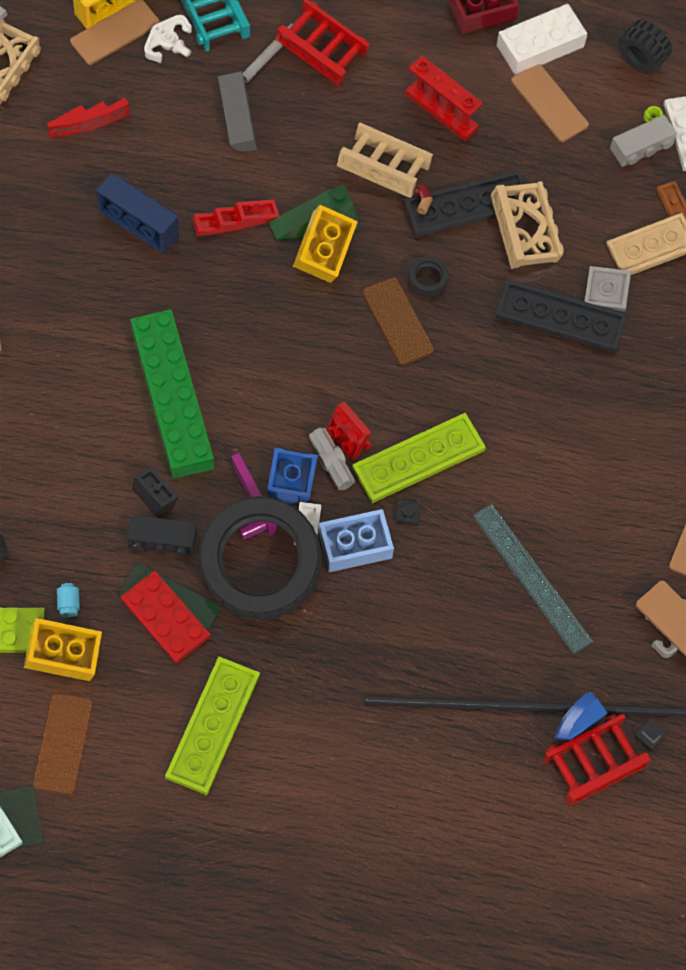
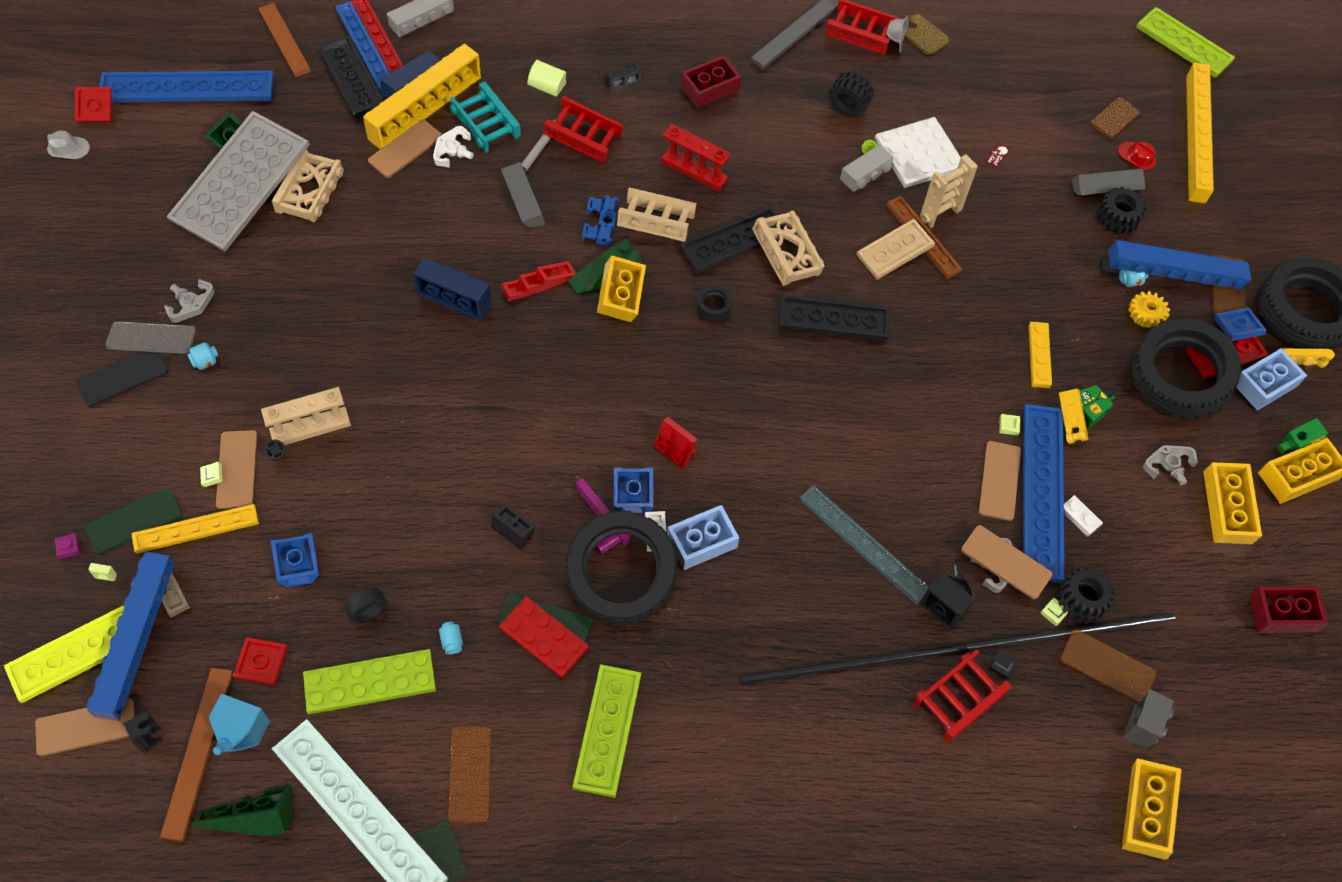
camera: 10 degrees left, 5 degrees down
(62, 649) = (454, 685): yellow brick -> none
(84, 120) = (390, 221): red slope -> none
(162, 535) = (526, 563): black brick -> none
(172, 394) = (512, 438): green brick -> none
(321, 169) = (604, 229): none -> blue piece
(331, 458) = (665, 470): light grey piece -> none
(398, 321) = (696, 344): clear orange piece -> none
(408, 513) = (742, 505): black plate -> none
(418, 457) = (740, 456): lime plate -> none
(426, 198) = (698, 238): arm -> none
(541, 39) = (764, 102): white brick -> none
(549, 103) = (782, 151): medium nougat piece -> none
(579, 717) = (941, 659): blue slope -> none
(608, 288) = (868, 288): light grey plate -> none
(608, 653) = (949, 597): none -> black piece

